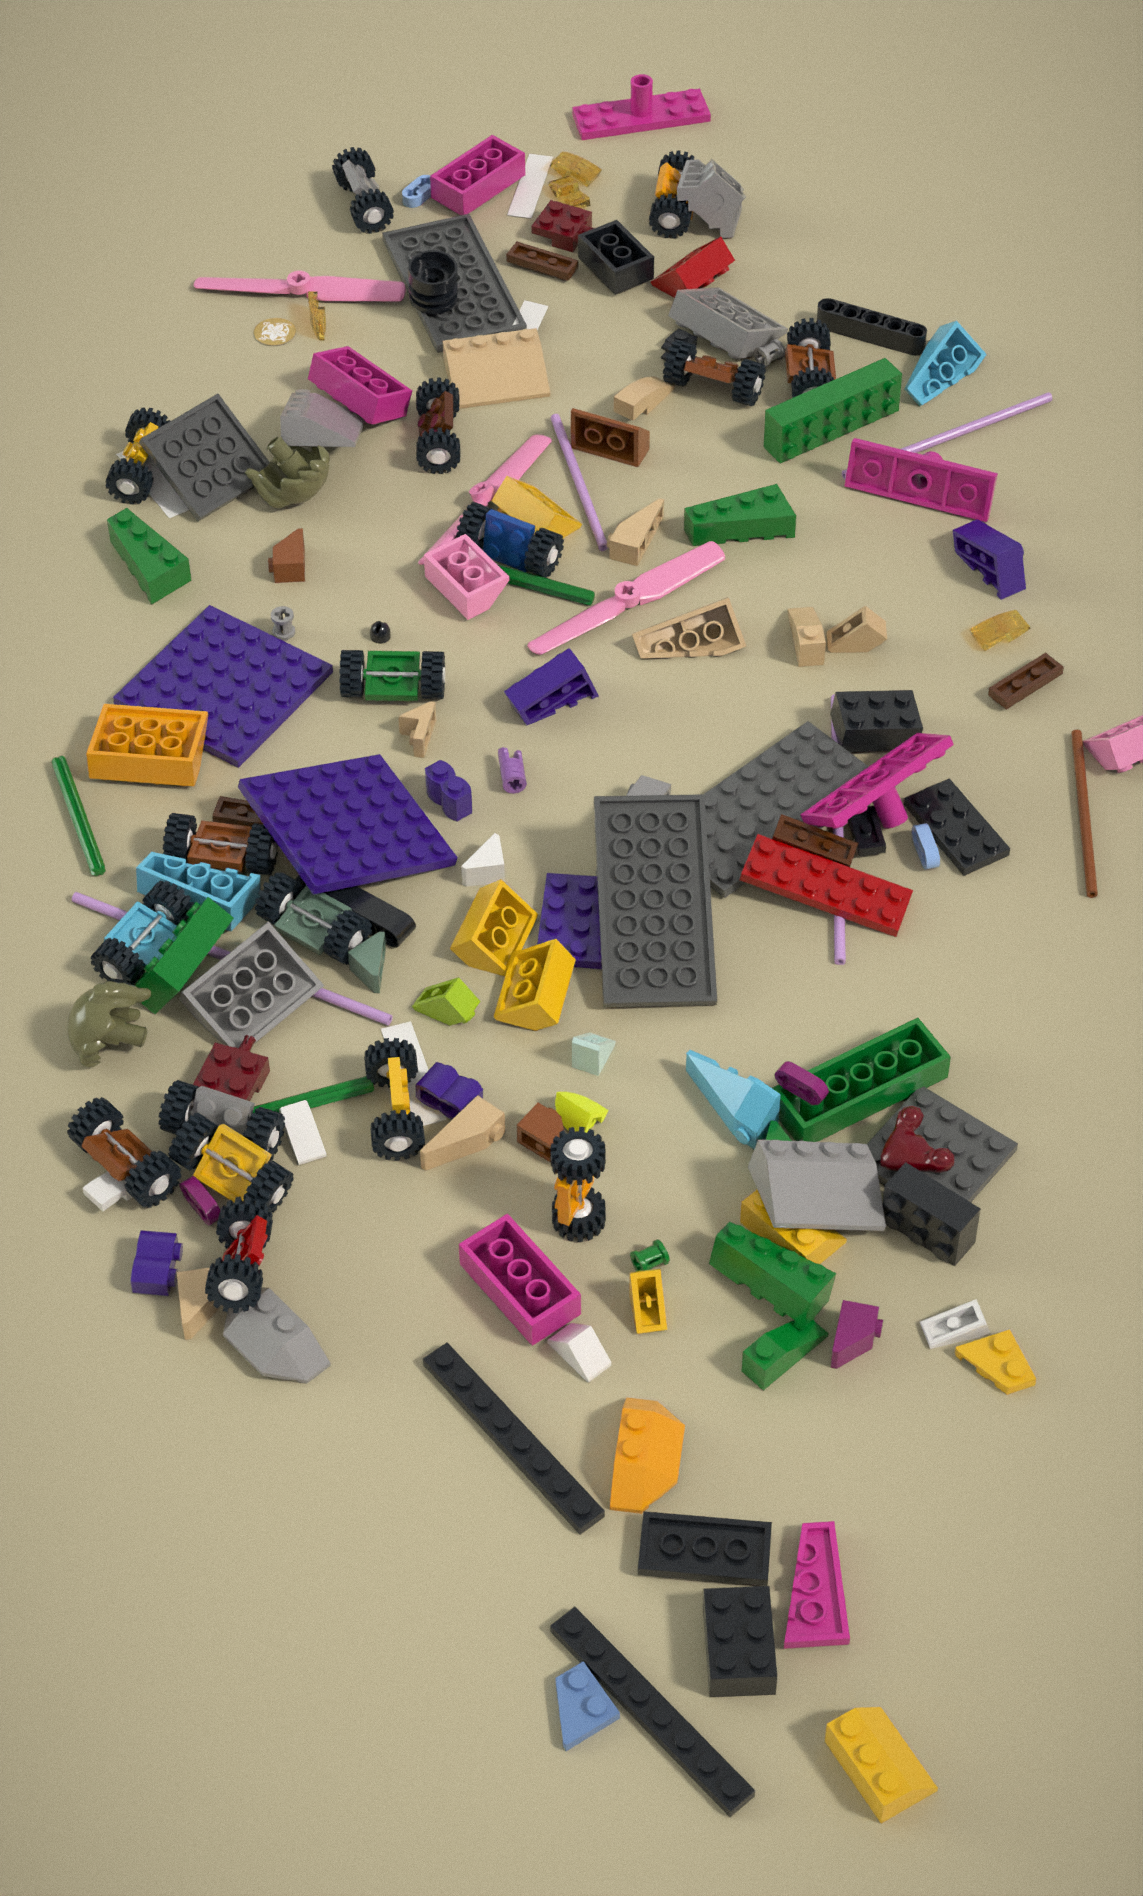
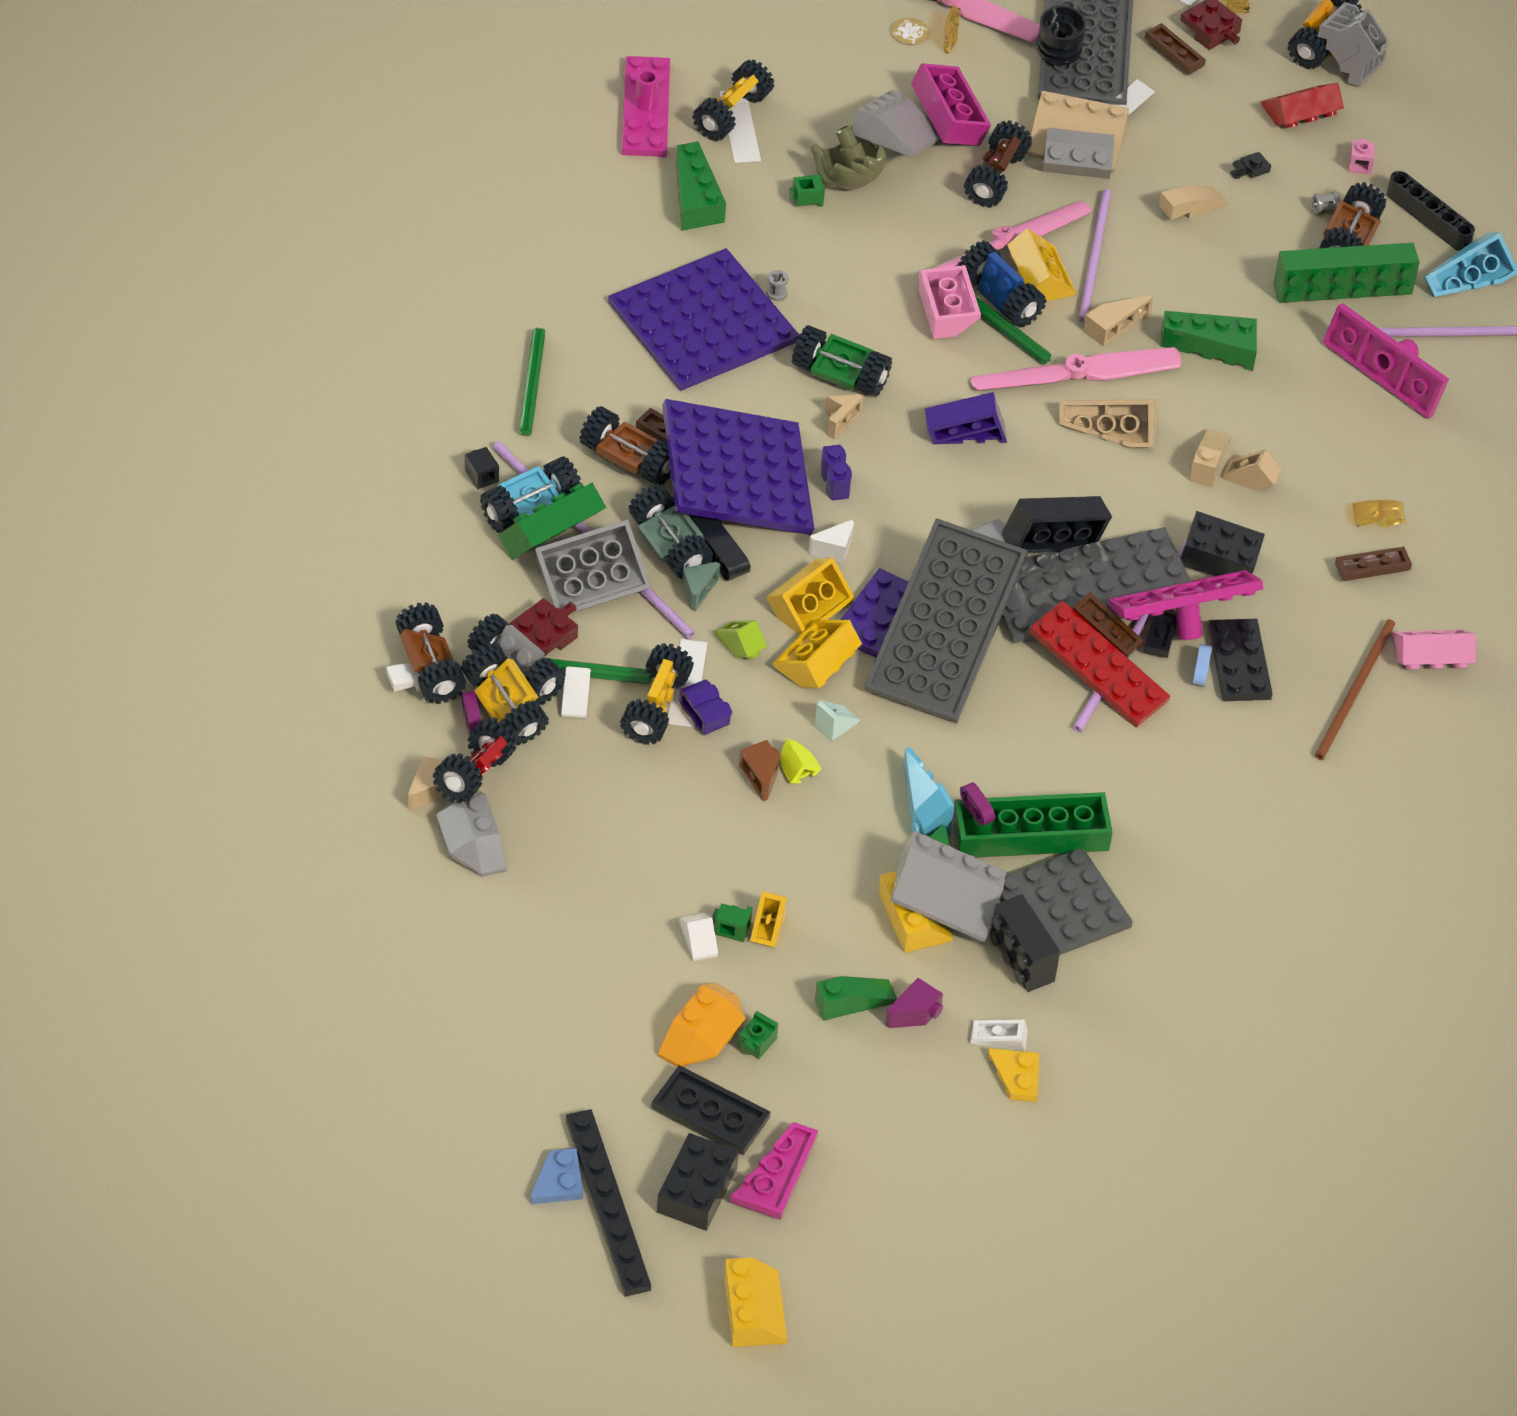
camera: 20 degrees right, 0 degrees up
(49, 494) = (646, 106): none -> dark pink plate
(73, 927) = (481, 467): none -> black brick
(102, 1017) = (466, 544): olive piece -> none
(147, 745) = (614, 345): light orange slope -> none
(155, 1263) = (413, 743): dark purple brick -> none
(205, 456) = (785, 119): dark grey plate -> none
(226, 888) = (612, 483): medium azure wedge -> none
(261, 518) = (807, 190): none -> green brick
(289, 559) = (812, 233): dark orange slope -> none
(384, 632) = (857, 324): black hinge -> none
(465, 1134) = (698, 743): tan slope -> none
(510, 388) = (1078, 153): none -> light grey slope
(512, 771) = (897, 476): medium lavender hinge -> none
(514, 1438) = (613, 976): black plate -> none
(520, 1279) = (679, 864): dark pink brick -> none
(577, 1161) = (754, 809): black plate -> none
(609, 438) = (1139, 226): dark orange slope -> none
(609, 1319) = (732, 921): none -> green brick
(615, 256) = (1239, 68): black brick -> none
(650, 1256) = (791, 889): green bush -> none
(683, 363) = (1286, 216): black plate -> none
(707, 756) = (1056, 523): none -> black brick
(707, 1438) = (758, 1035): none -> green brick
(724, 321) = (1303, 159): light grey slope -> none
(773, 1273) = (878, 939): green wedge -> none
(776, 293) = (1362, 151): none -> bright pink brick
(912, 1148) = (1038, 888): dark red head -> none
(993, 555) = (1410, 447): dark purple wedge -> none

